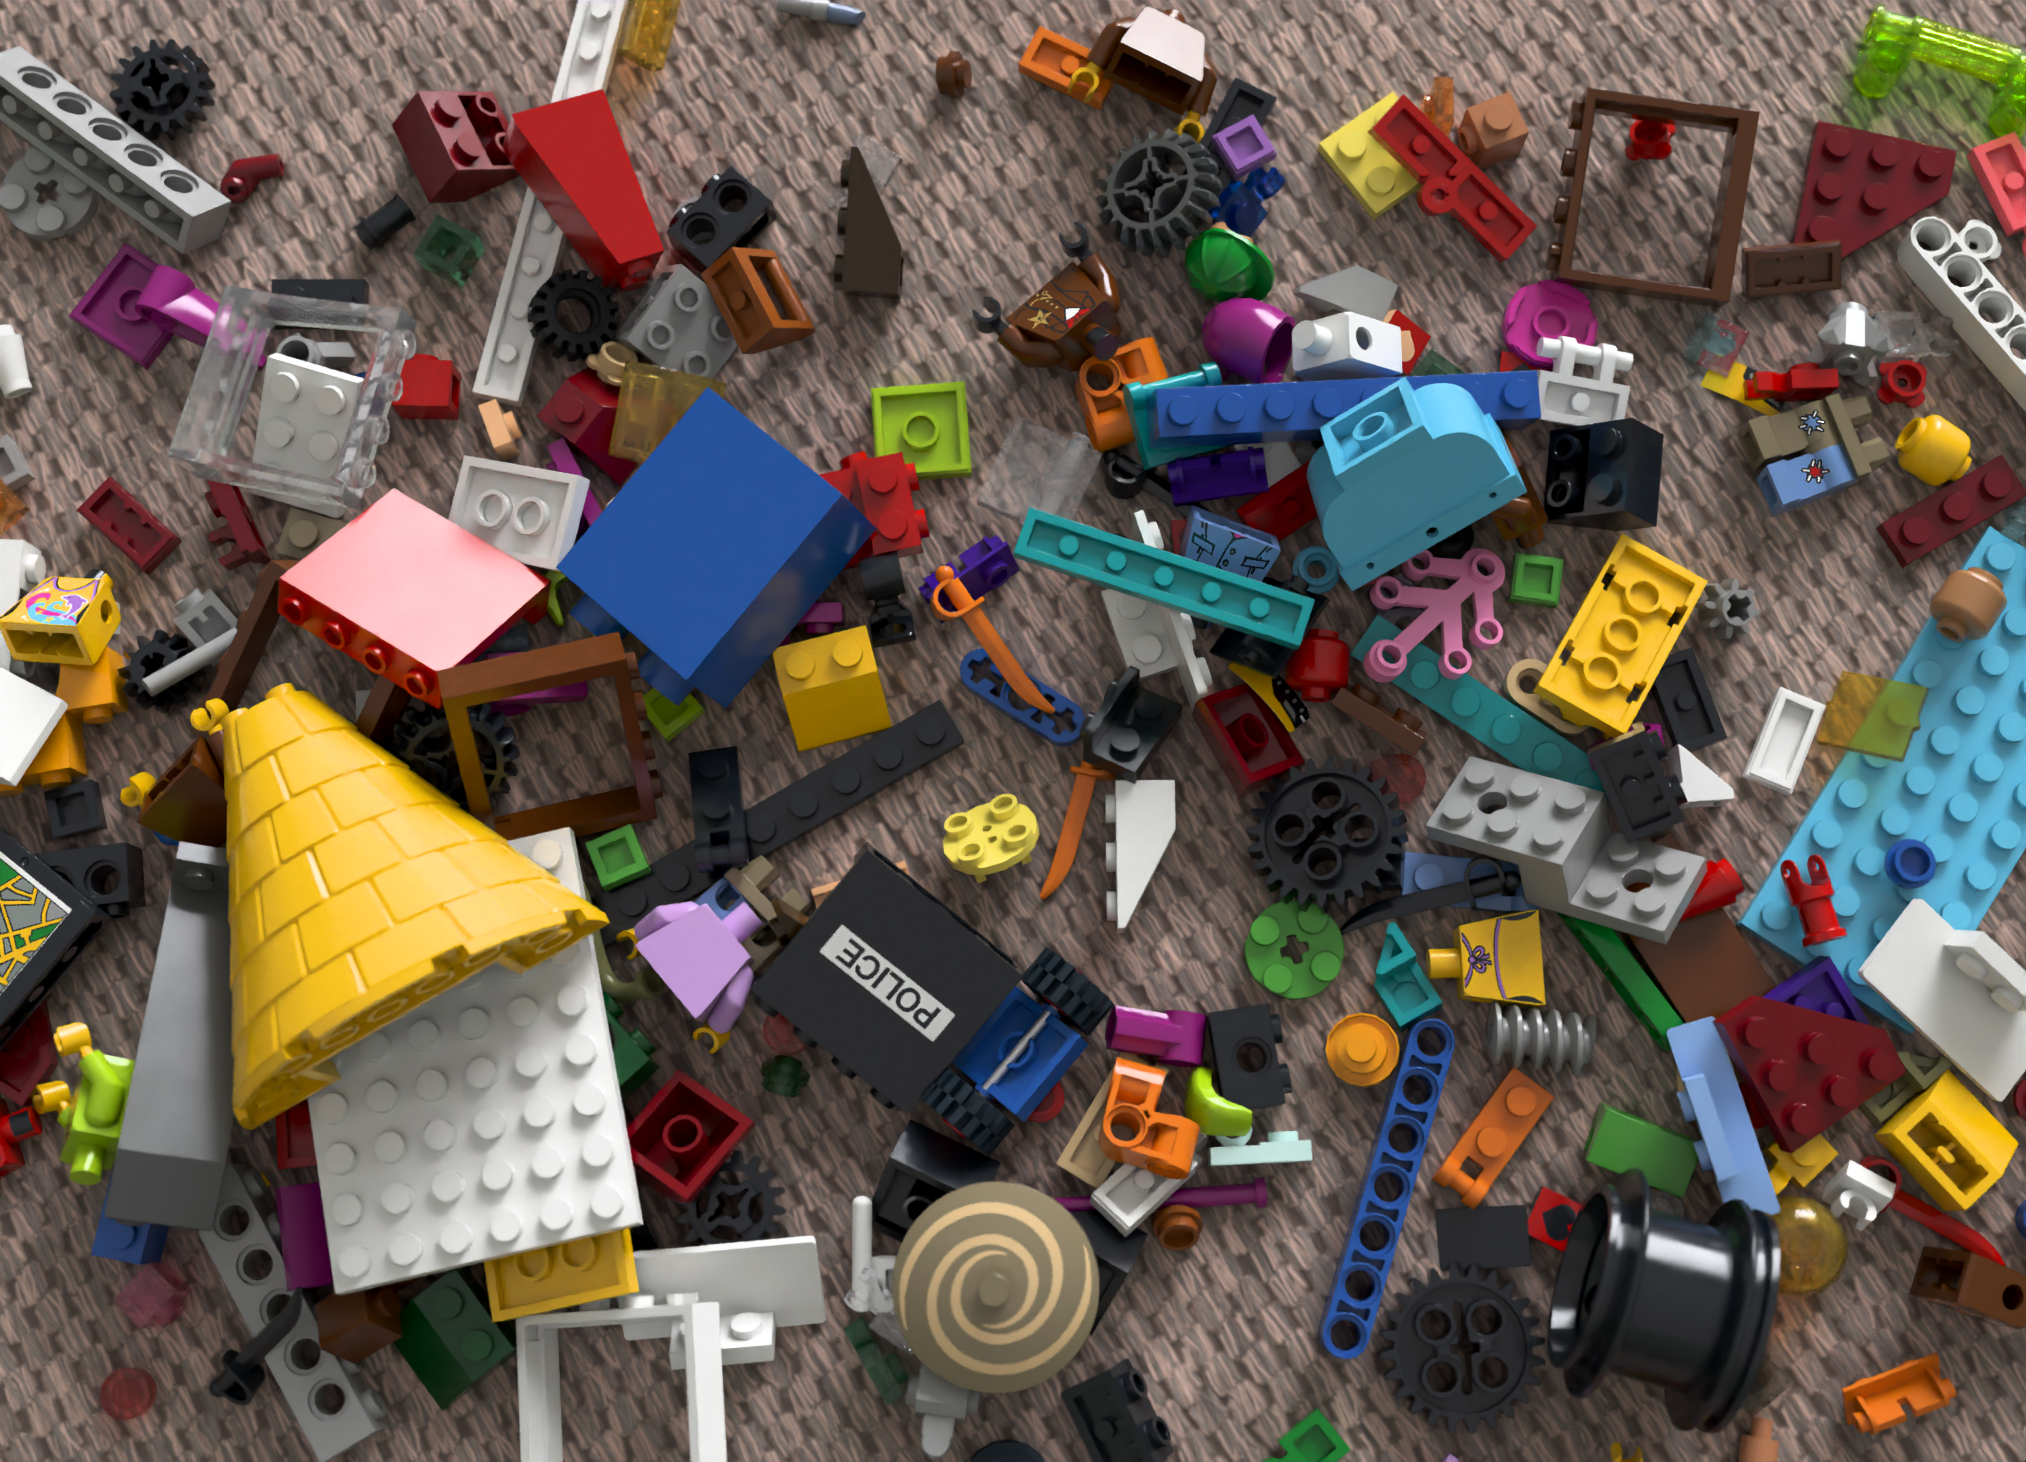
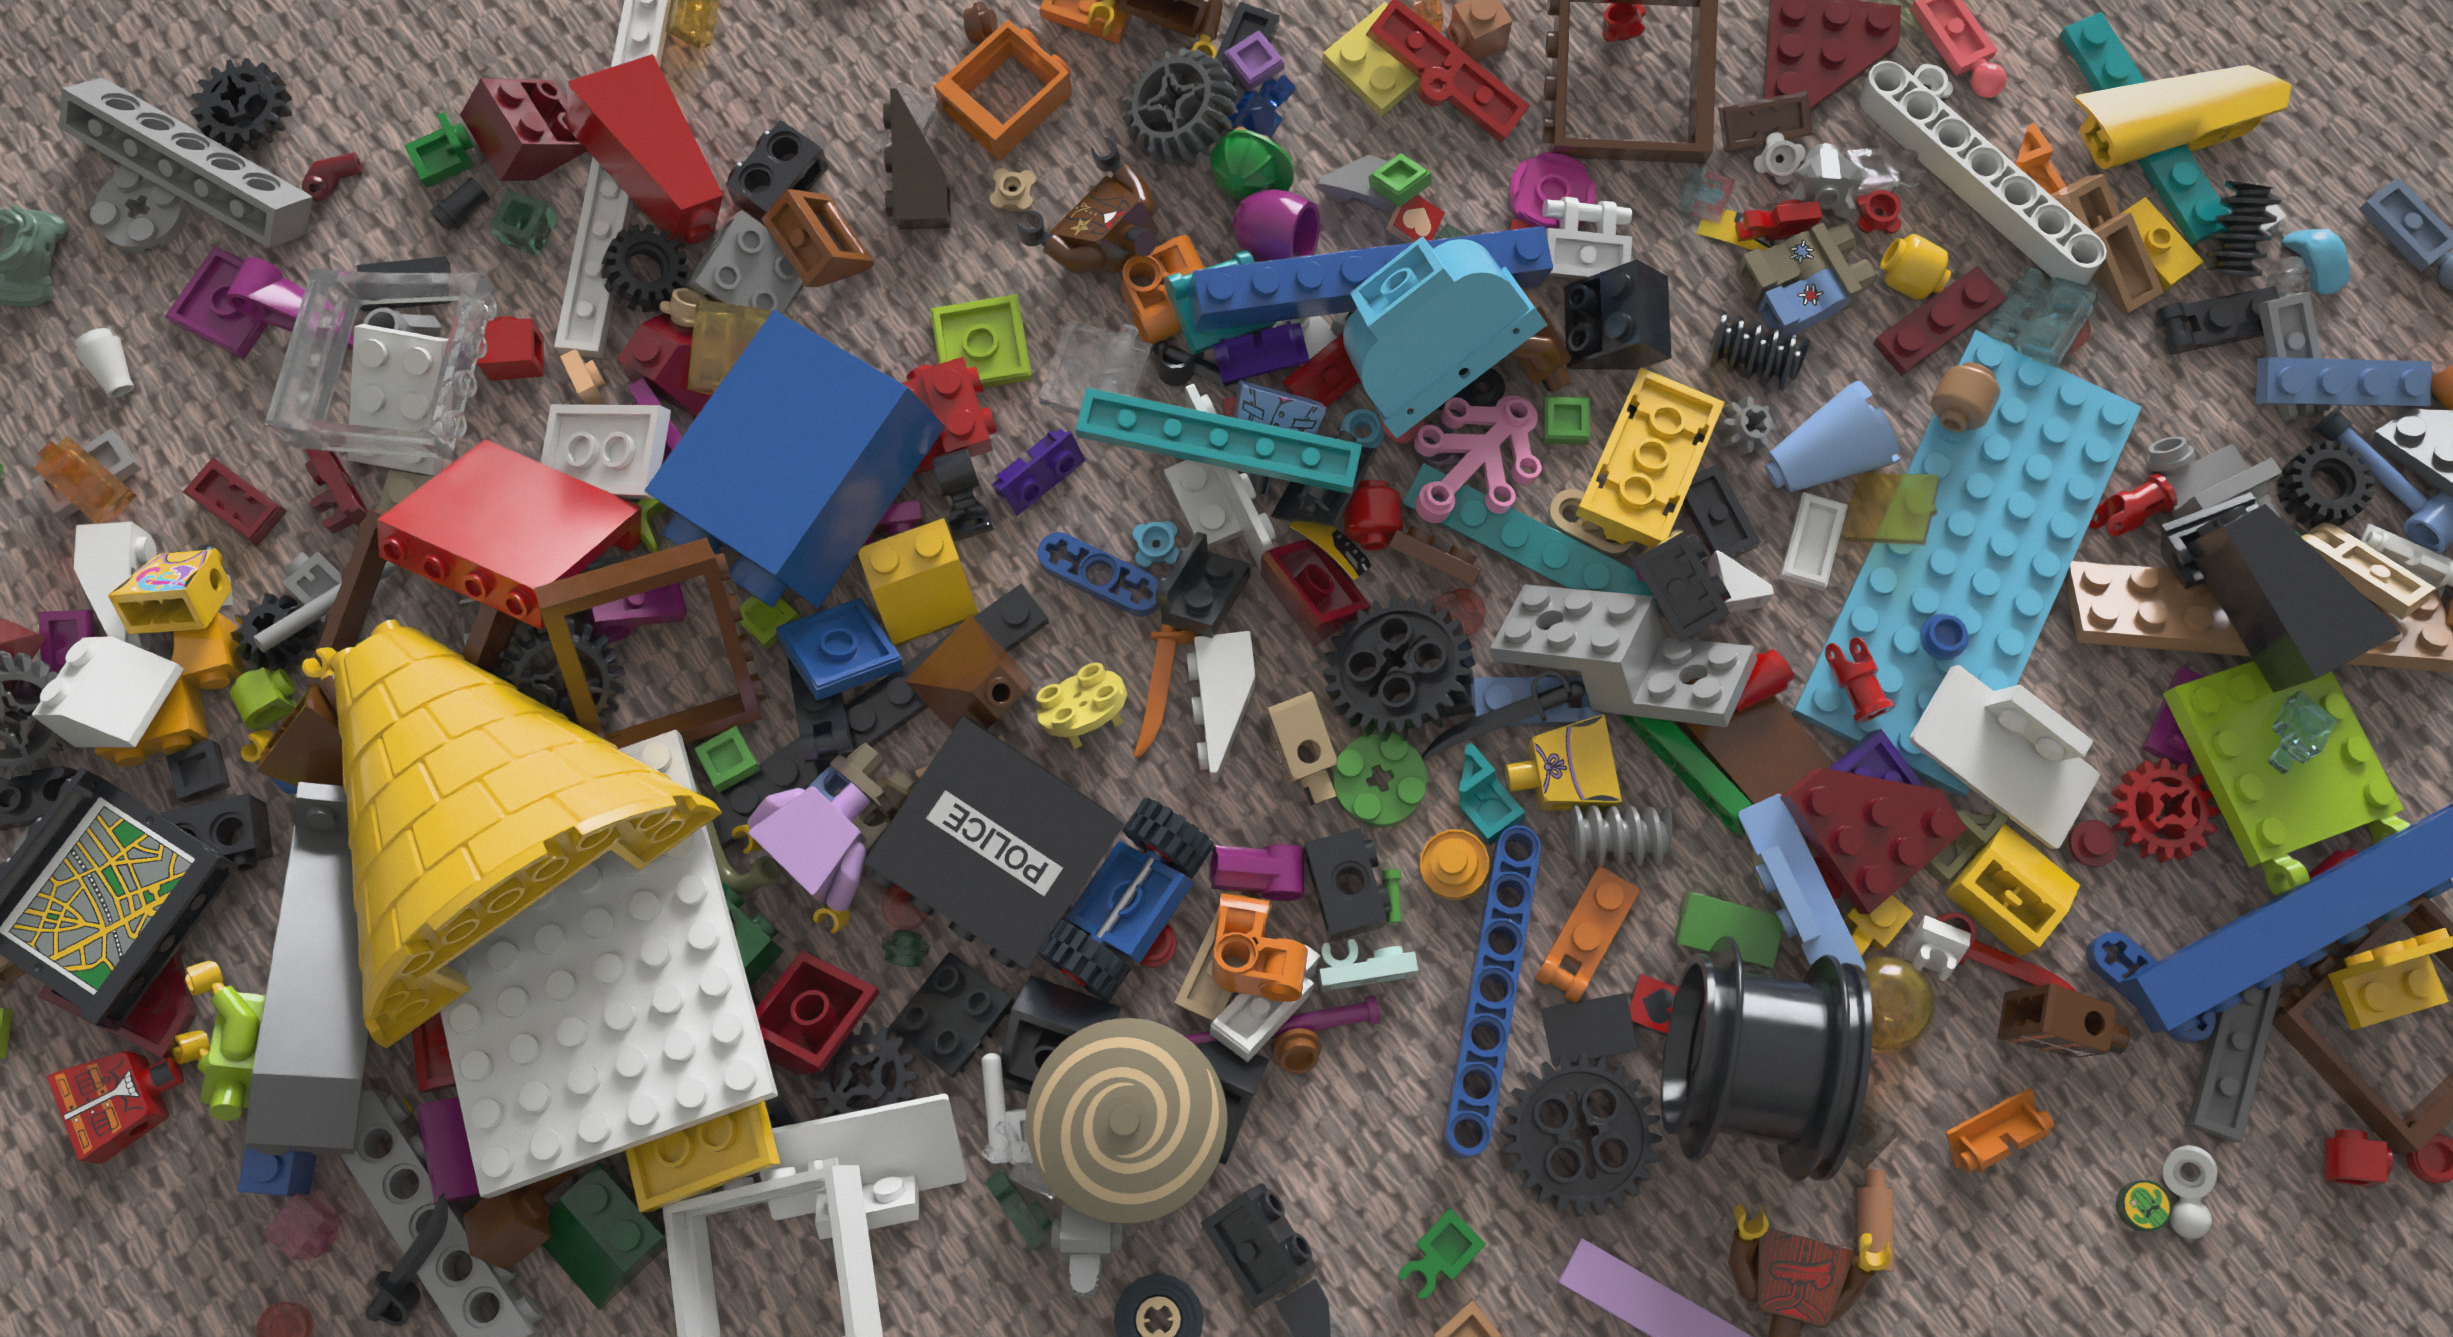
camera: 10 degrees left, 5 degrees down
(146, 739) = (263, 697): none -> lime plate
(368, 163) = (441, 152): none -> green bracket
(743, 752) = (838, 648): none -> blue tile
(825, 1149) = (952, 1015): none -> black hinge
(878, 801) = (969, 677): none -> reddish brown slope
(933, 178) = (1003, 43): none -> orange window
(971, 277) = (1017, 200): none -> tan plate
(985, 634) = (1058, 516): orange sword -> none
(1077, 659) = (1151, 532): none -> medium azure plate
(1206, 888) = (1301, 724): none -> tan torso
(1210, 1111) = (1318, 934): lime hair -> none
(1294, 1062) = (1391, 879): none -> bright green piece
(1333, 351) = (1365, 221): white torso -> none
(1387, 297) = (1400, 179): none -> bright green tile
(1750, 528) = (1757, 351): none -> black piece
(1815, 311) = (1791, 154): none -> white plate
(1820, 639) = (1835, 443): none -> light blue cone

